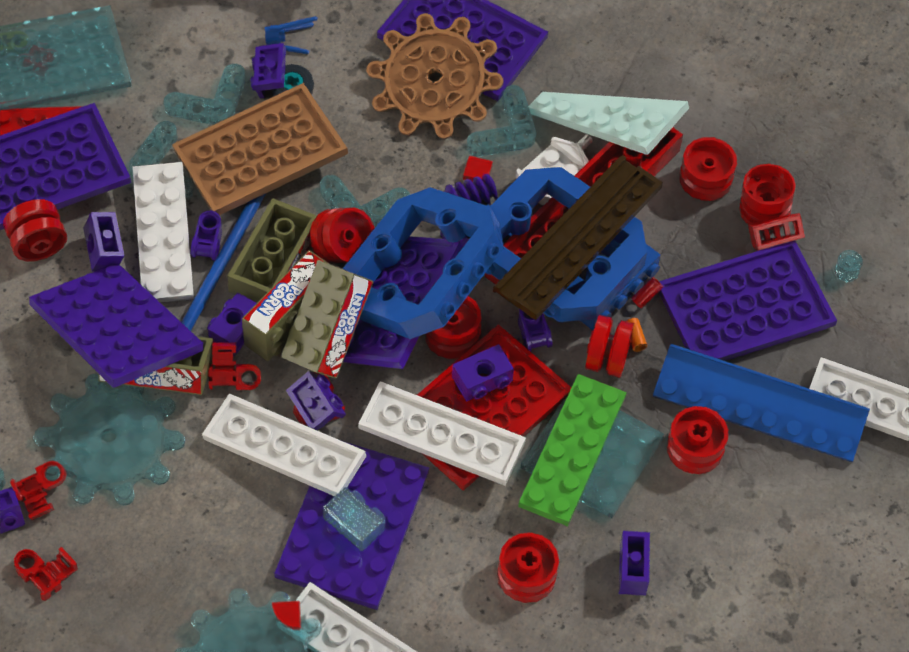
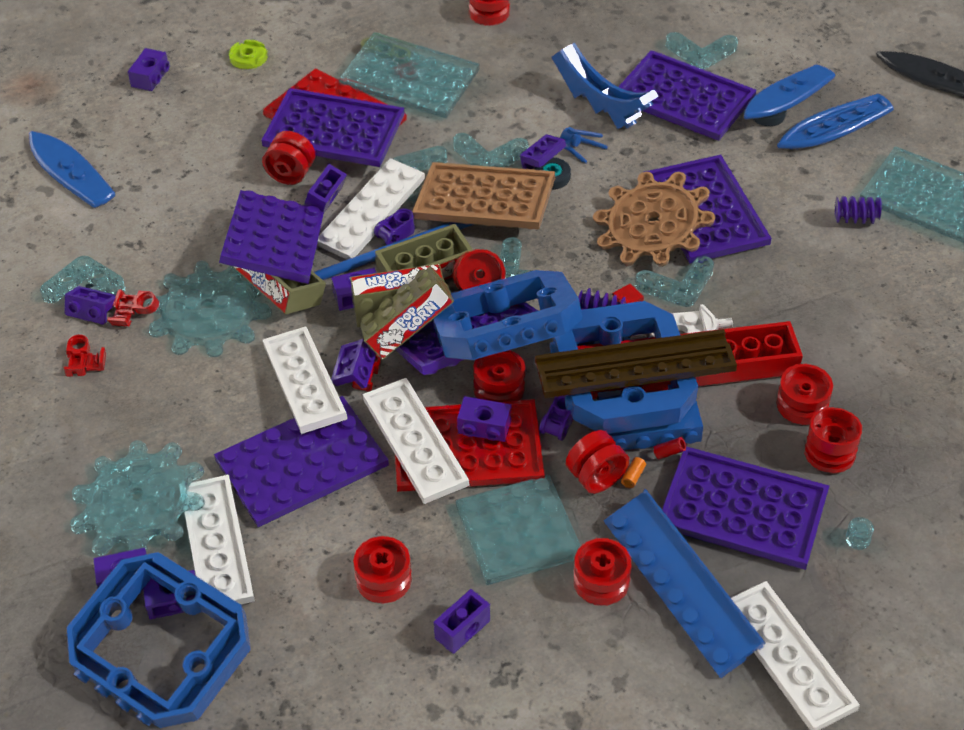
camera: 45 degrees right, 10 degrees down
(224, 371) = (318, 309): red piece -> none
(288, 613) = (186, 479): red tile -> none
(354, 518) = (295, 451): clear light blue brick -> none
(572, 450) = (498, 513): bright green plate -> none
(620, 120) = (757, 316): light aqua wing -> none
(764, 225) = (798, 463): red slope -> none

